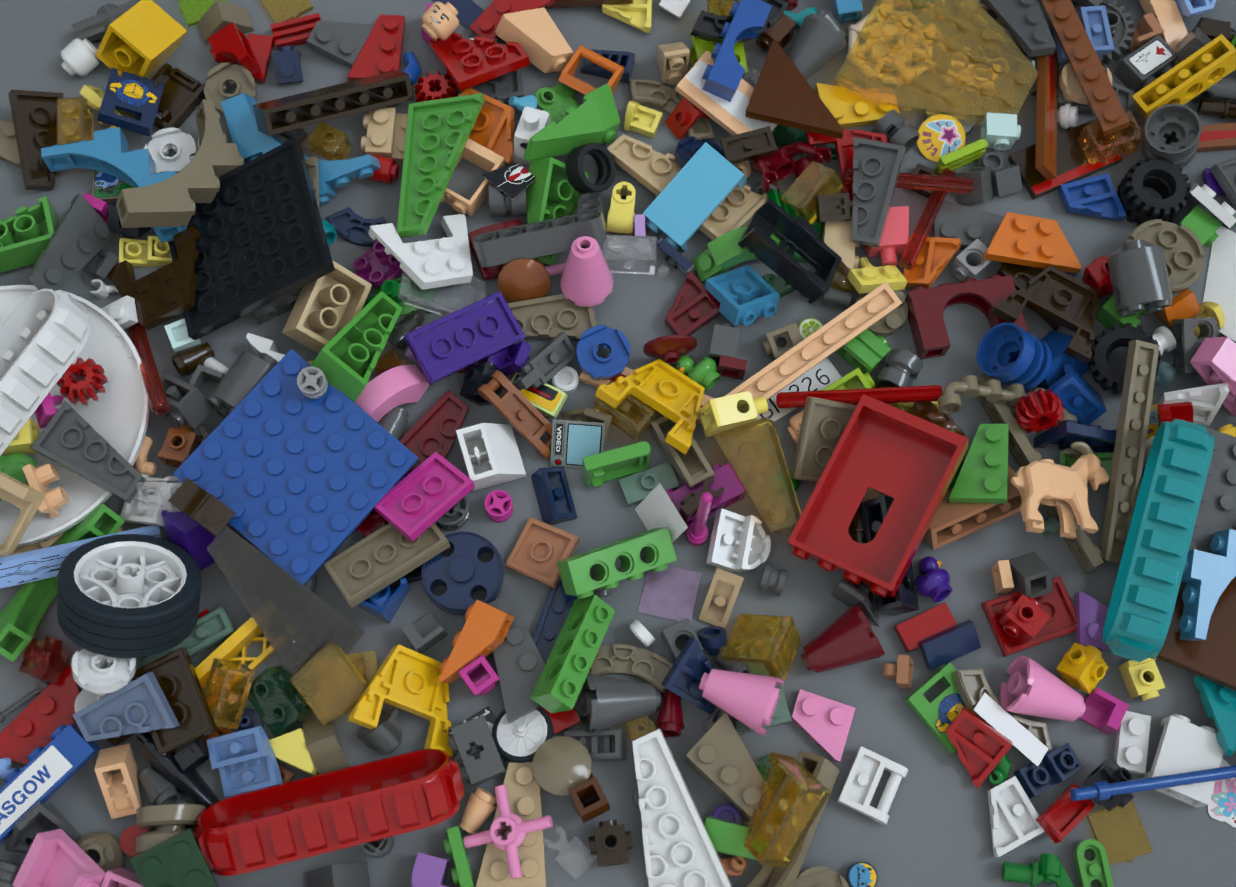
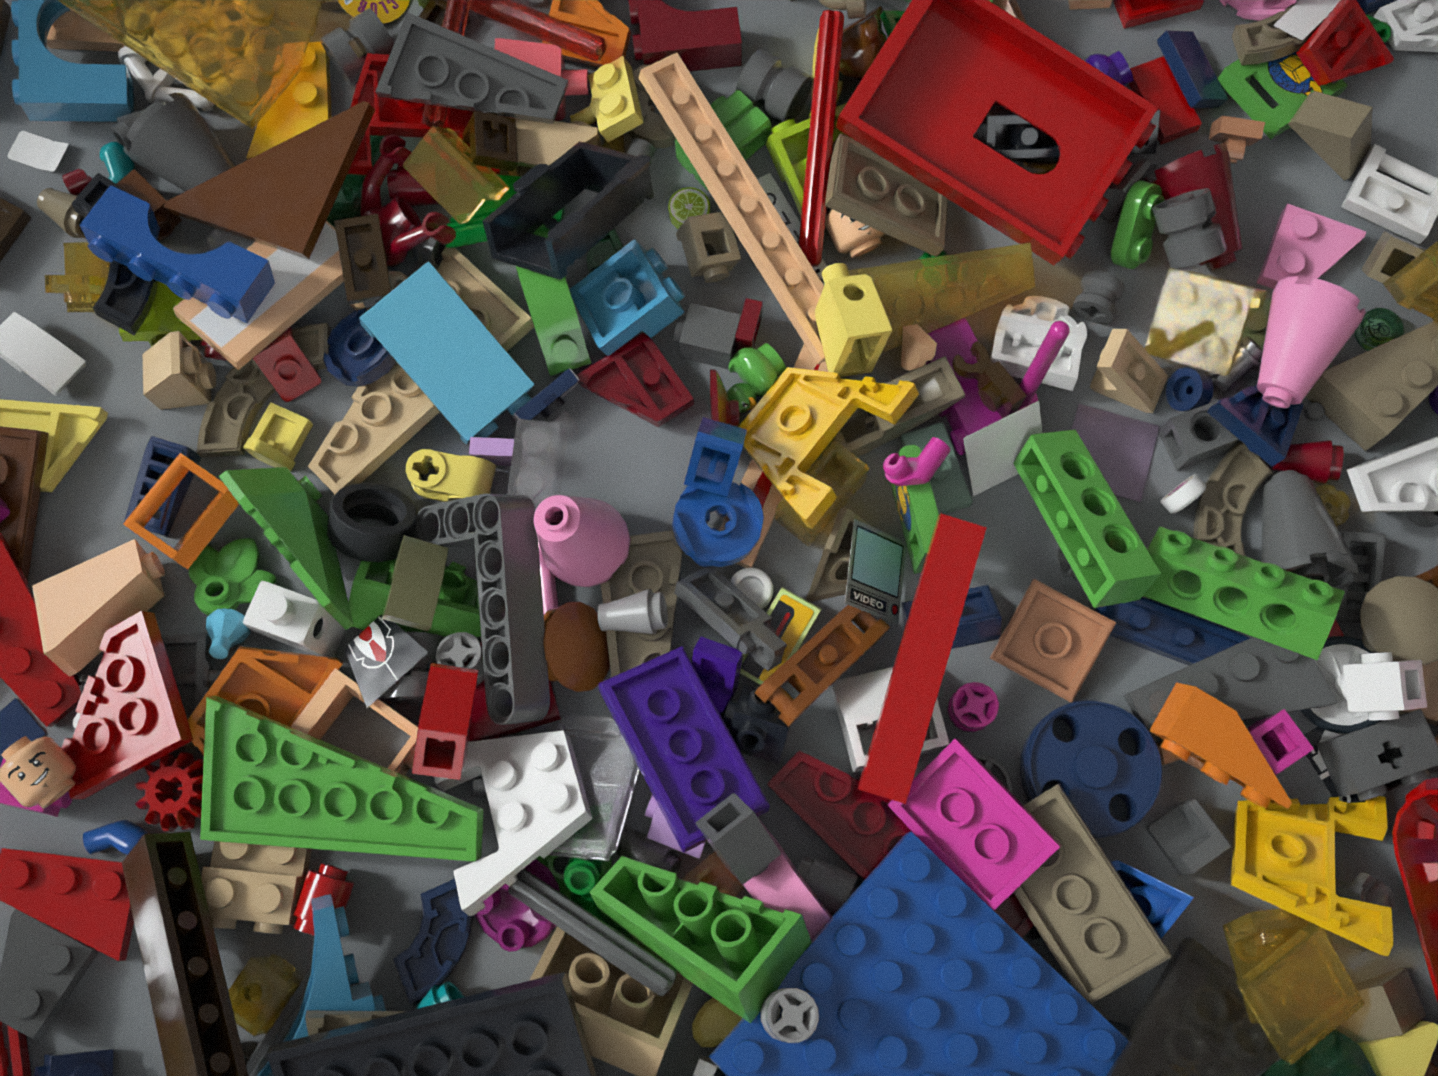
camera: 80 degrees left, 5 degrees up
(361, 294) = (593, 932): none -> dark grey axle
(409, 360) = (738, 838): none -> dark grey brick
(472, 210) = (445, 722): none -> red slope
(513, 214) = (456, 650): none -> light grey wheel
(516, 742) = (1383, 686): none -> white brick
(520, 458) = (922, 658): none -> red tile
(543, 311) = (635, 613): none -> light grey cone
(552, 189) = (415, 583): none -> olive slope
(632, 447) = (916, 470): none -> dark pink arm
(638, 339) = (715, 456): none -> blue slope
(720, 457) = (916, 347): none -> light nougat tile
(816, 623) = (1189, 228): none -> dark grey wheel
(823, 599) = (1136, 224): none -> bright green plate
(910, 737) = (1335, 130): none -> dark tan slope

